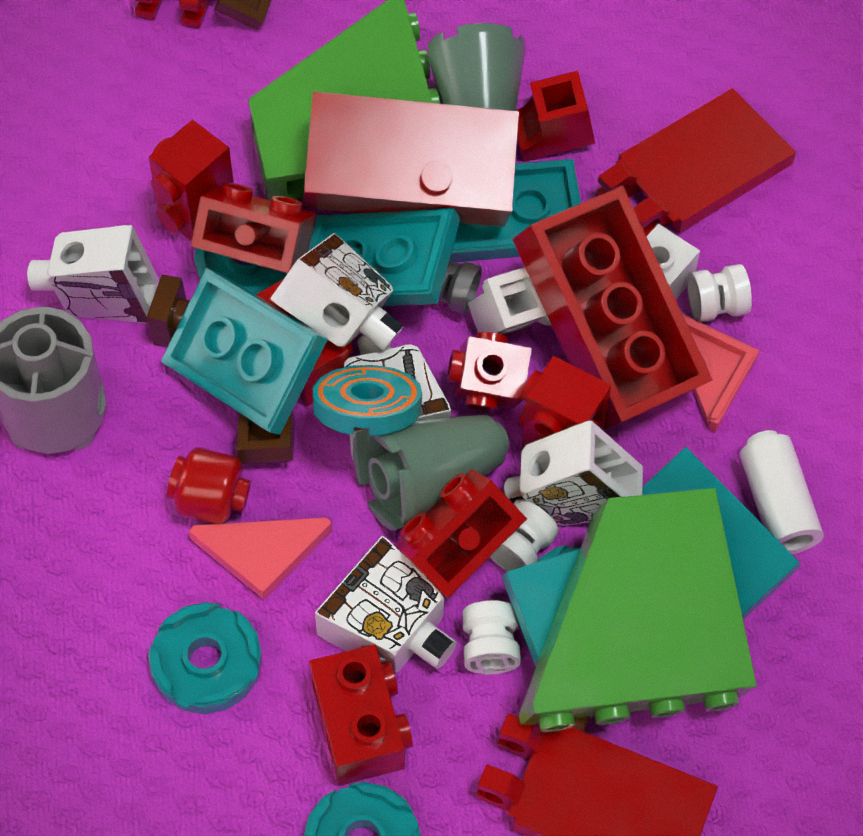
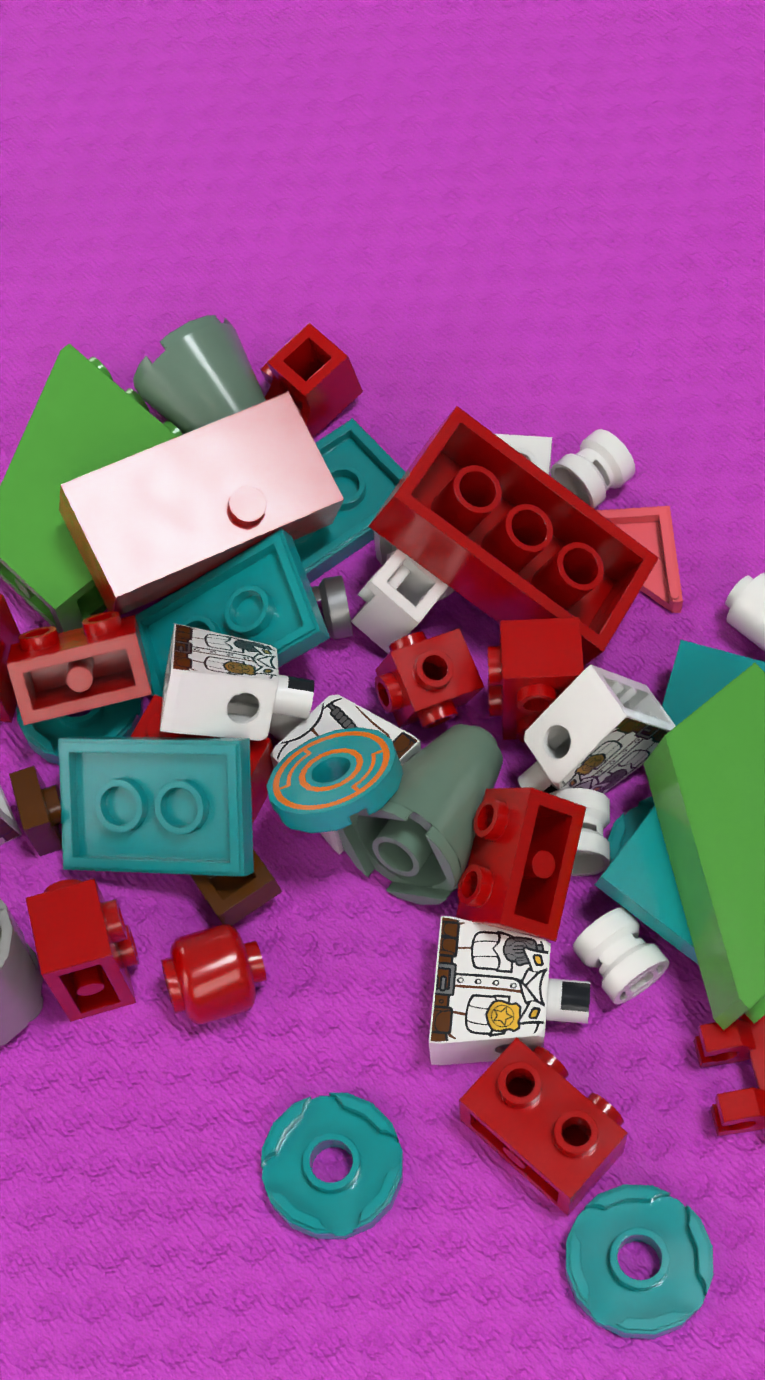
camera: 25 degrees left, 0 degrees up
(132, 417) = (83, 947): none -> red brick
(261, 551) = (312, 1011): coral tile -> none
(699, 163) = (477, 354): red tile -> none

